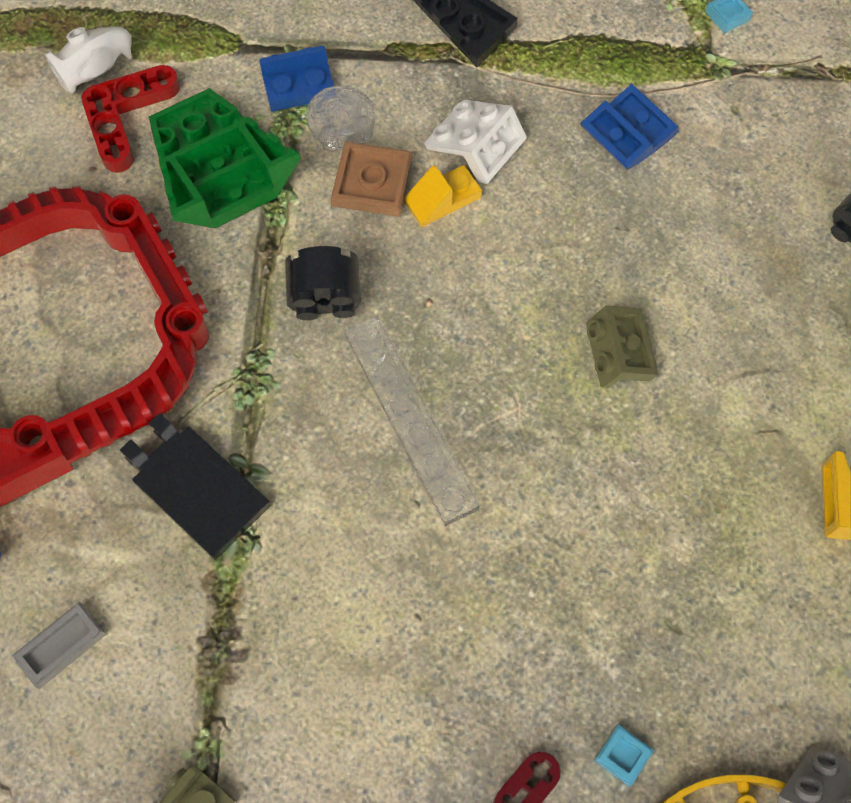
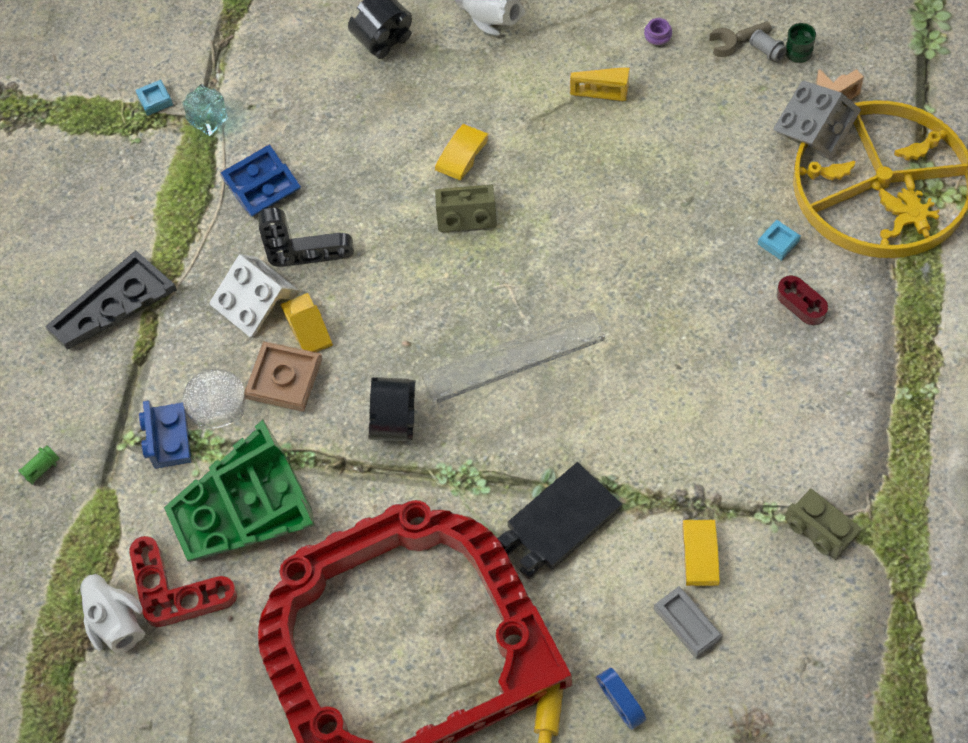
camera: 80 degrees left, 5 degrees down
(146, 656) = (700, 553): none -> yellow slope
(531, 153) = (299, 250): none -> black beam
(703, 333) = (460, 152): none -> yellow slope
(714, 55) = (205, 109): none -> clear light blue brick

